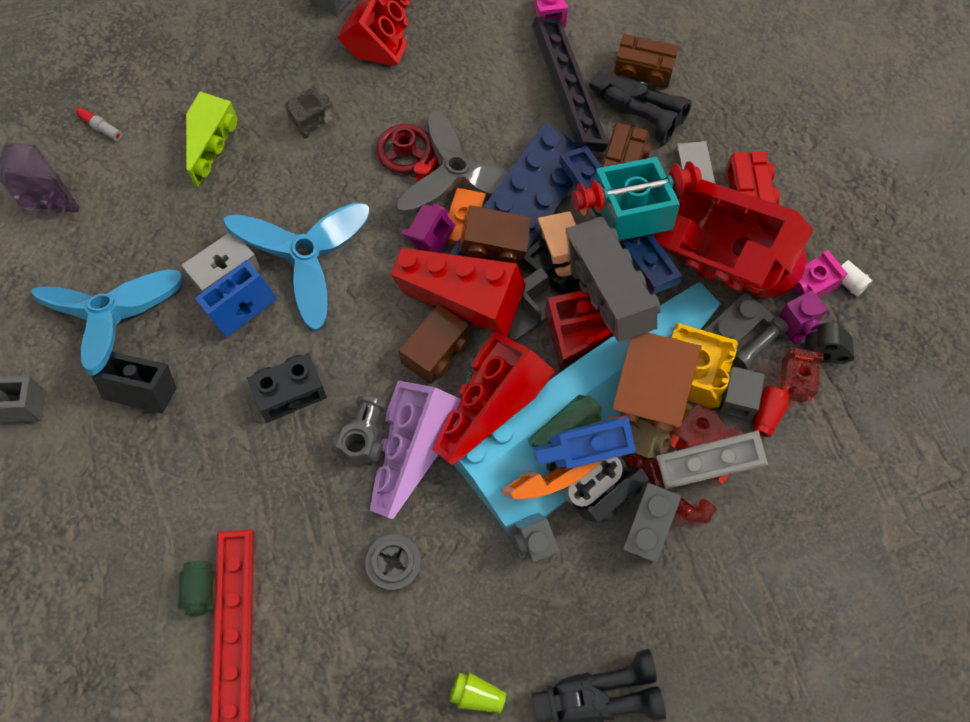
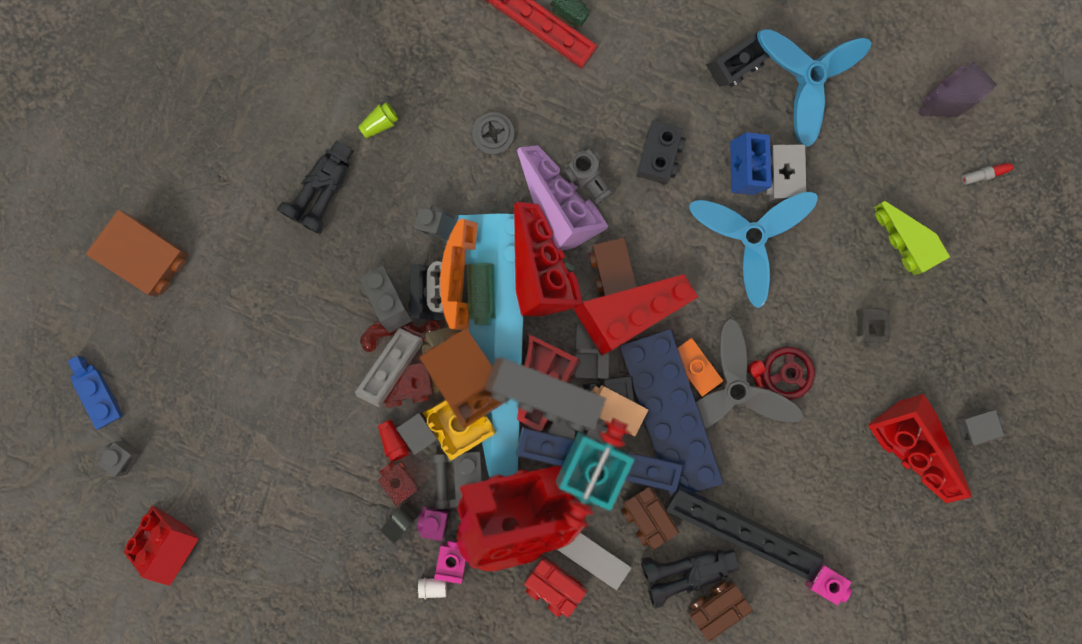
camera: 130 degrees right, 20 degrees up
(430, 229) = (700, 331): magenta brick -> none
(494, 234) = (654, 365): reddish brown brick -> none
(588, 444) = (454, 288): blue hinge -> none

